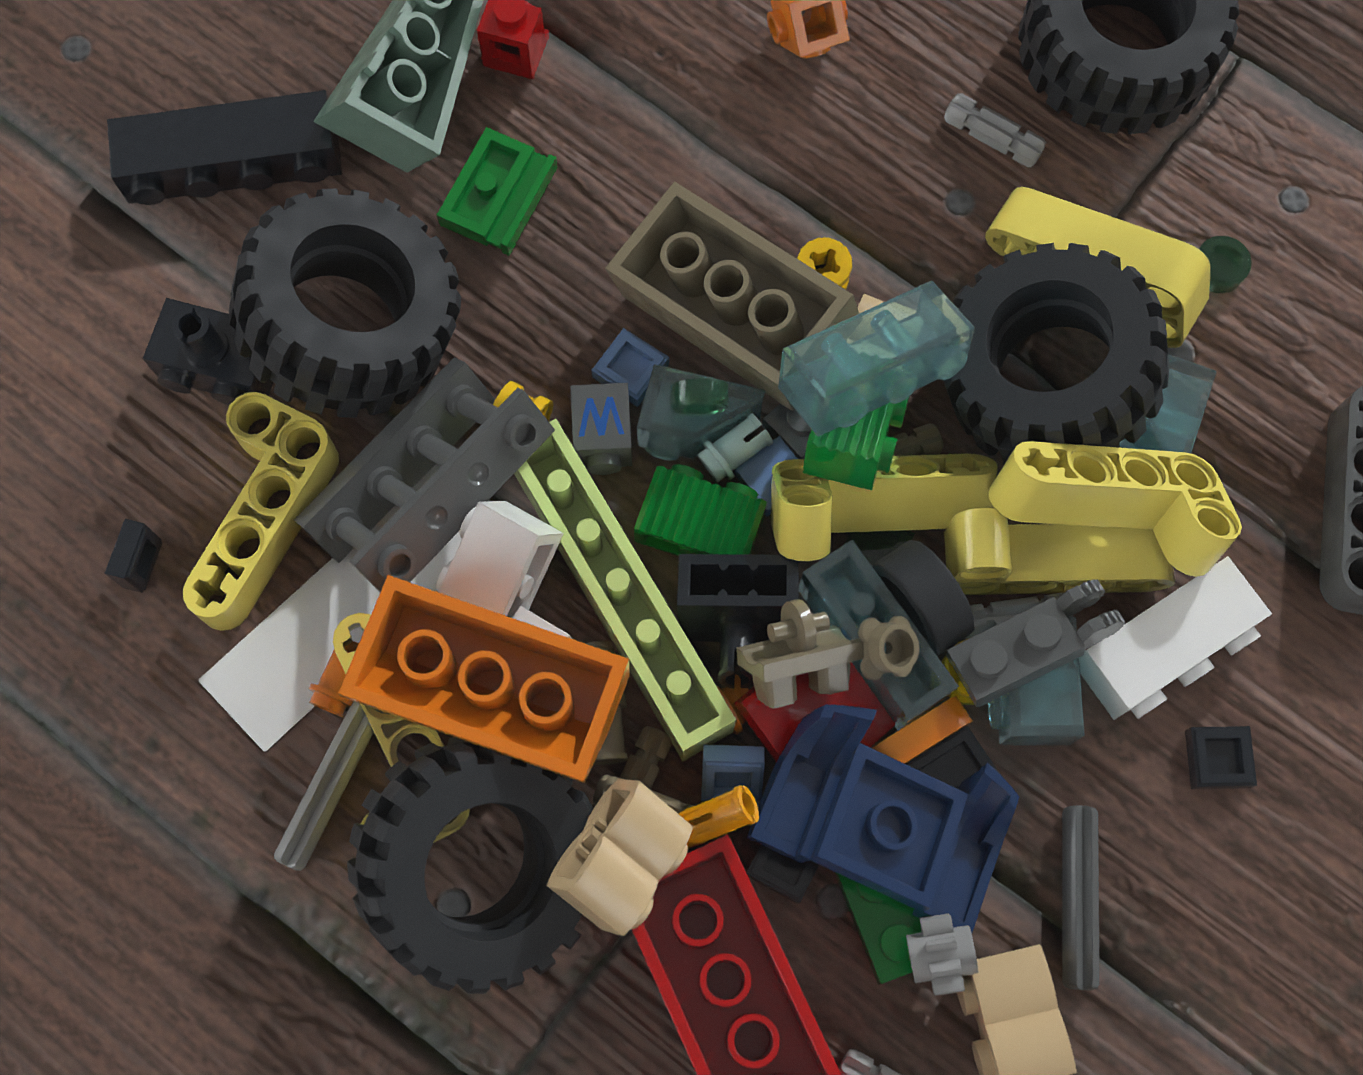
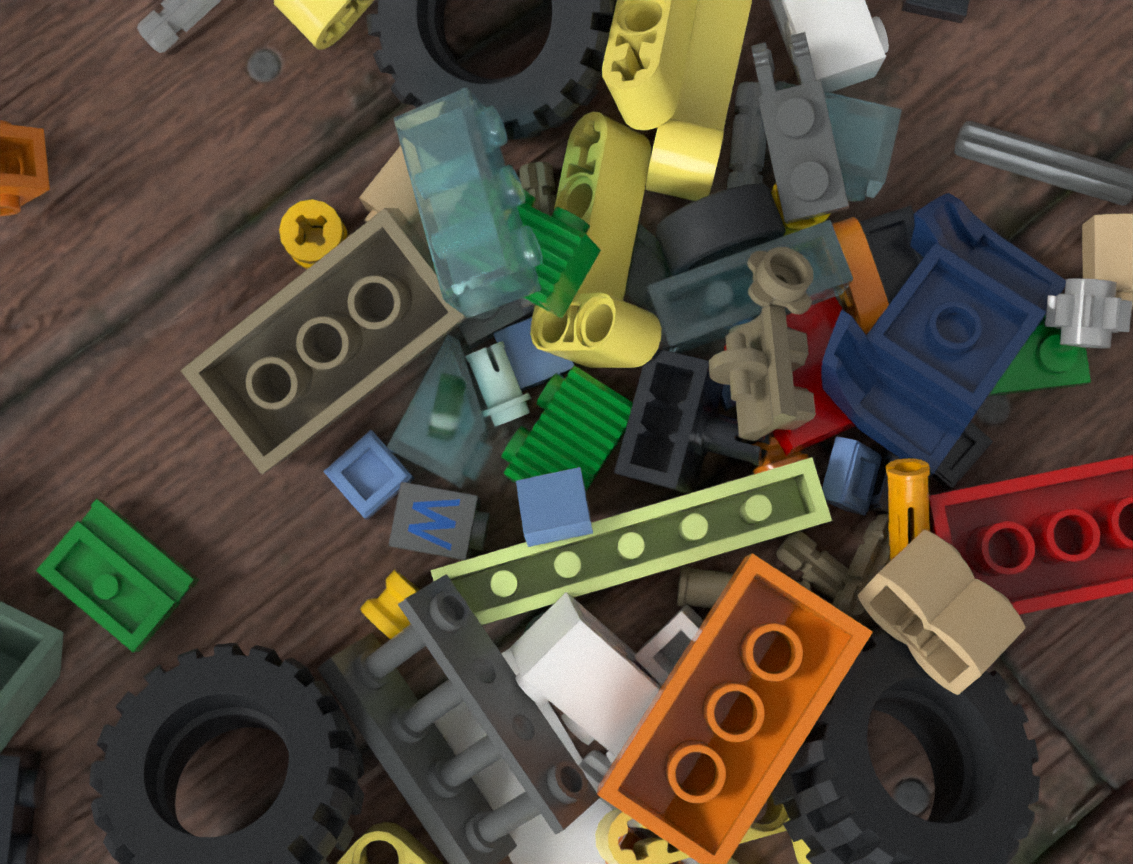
camera: 70 degrees left, 10 degrees up
(635, 506) = (554, 507): none -> medium blue tile

